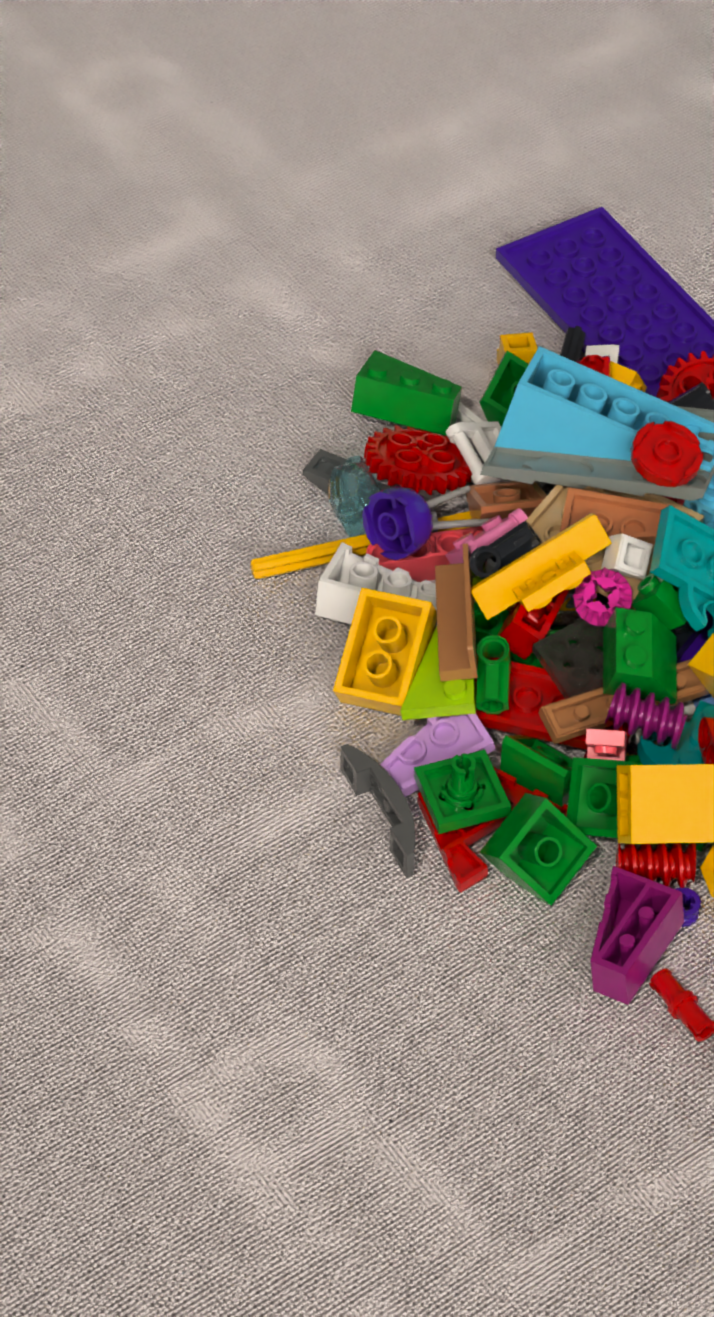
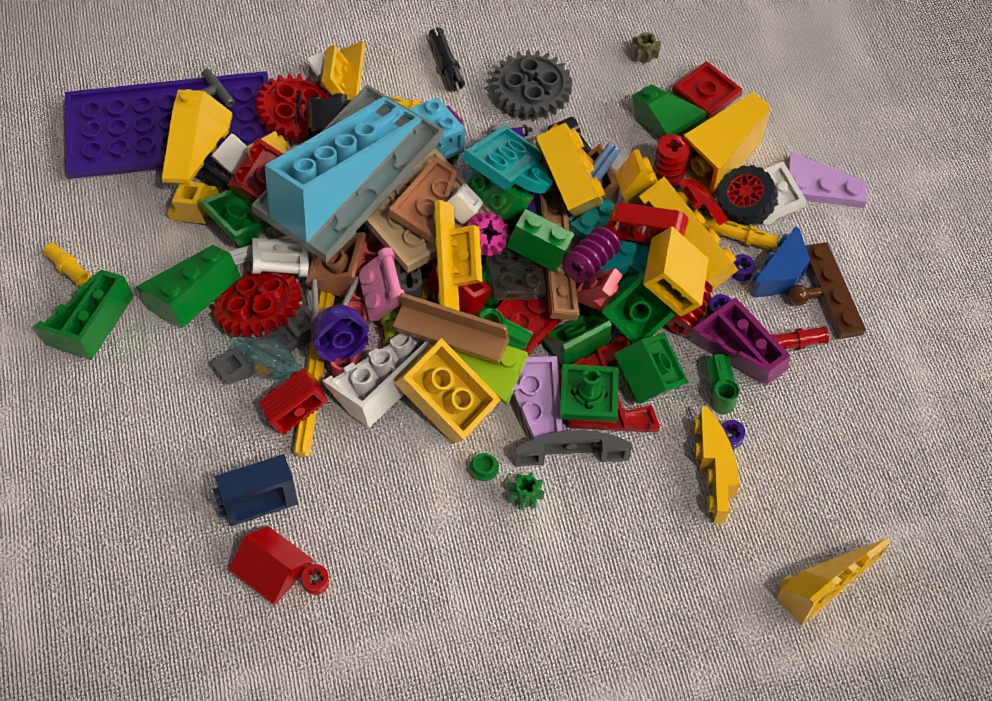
camera: 70 degrees left, 10 degrees up
(110, 589) = (269, 563): none -> red slope
(110, 642) = (311, 570): none -> red bush
(178, 537) = (255, 490): none -> dark blue window
(304, 780) = (530, 491): none -> green gear
(305, 530) = (293, 401): none -> red brick
(319, 734) = (484, 467): none -> green plate
(320, 1113) = (822, 582): none -> yellow wedge
(322, 333) = (89, 316): none -> green wedge
(382, 296) = (66, 263): none -> yellow pin
(450, 958) = (718, 460): none -> yellow slope
(486, 964) = (738, 428): none -> dark purple bush
(505, 549) = (422, 270): black piece -> none
(560, 934) = (721, 383): none -> green piece
(613, 313) = (194, 131): none -> yellow wedge
(666, 454) = (403, 136): red tile -> none
(687, 320) = (216, 88): none -> dark grey piece

